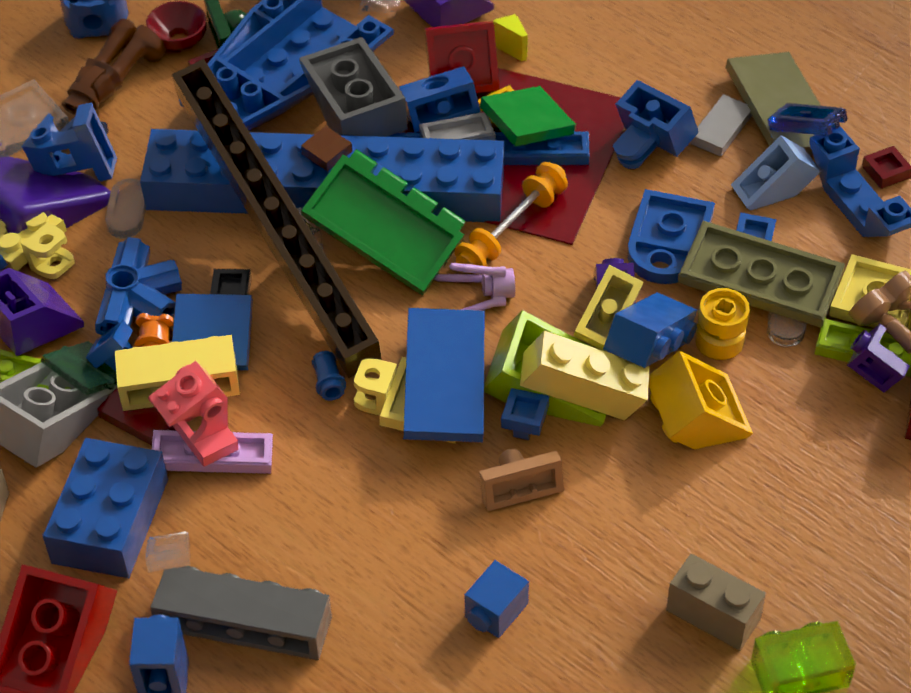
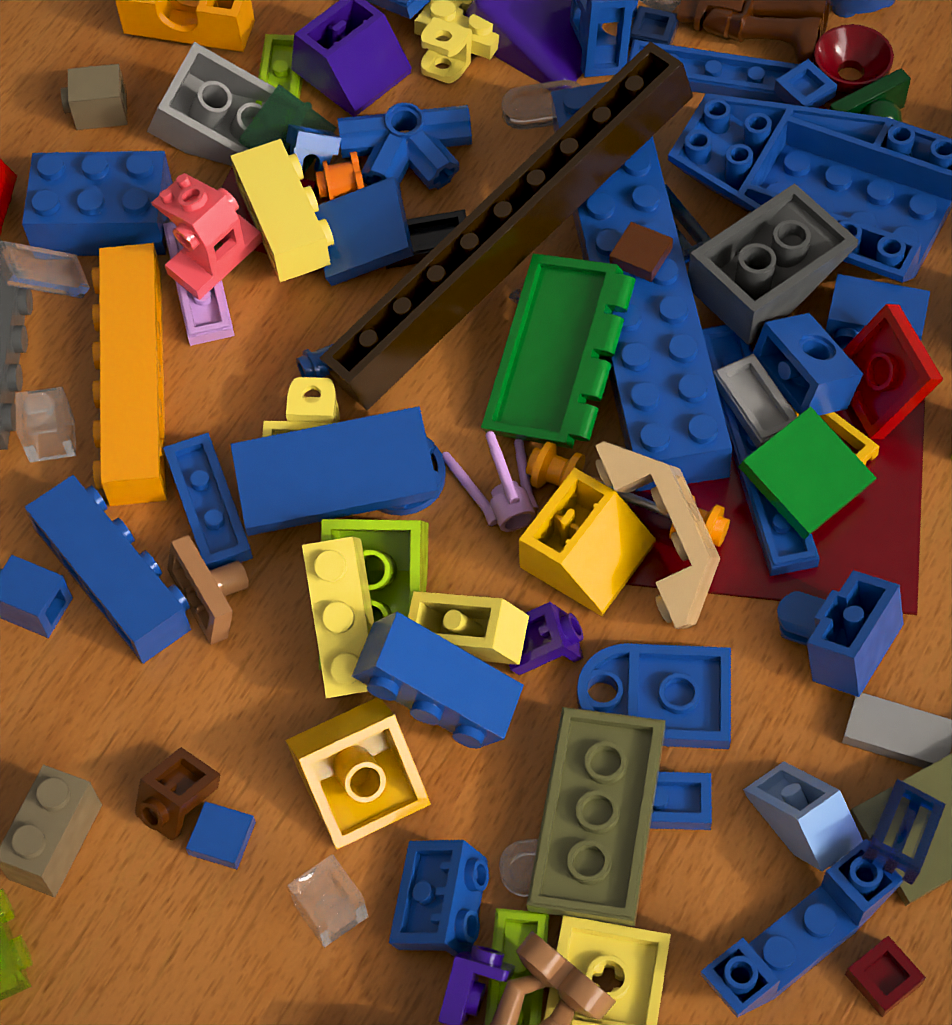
camera: 80 degrees right, 10 degrees up
(142, 107) = (725, 72): none -> blue tile
(189, 52) = (805, 86): none -> blue tile
(294, 504) = (130, 376): none -> light orange brick
(331, 567) = (45, 424): none -> clear brick
(406, 56) = (860, 299): none -> blue brick
(435, 469) = (207, 502): none -> blue plate
(469, 544) = (109, 568): none -> blue brick
(524, 413) = (289, 571): blue tile -> none
(543, 246) = (585, 542): none -> yellow slope
(600, 191) = (686, 590): none -> tan slope
(695, 518) = (174, 791): none -> reddish brown bracket
(722, 323) = (492, 775): yellow wheel -> none
(731, 500) = (221, 835): none -> blue tile
(804, 373) = (439, 897): none -> blue bracket
(805, 427) = (328, 900): none -> clear brick

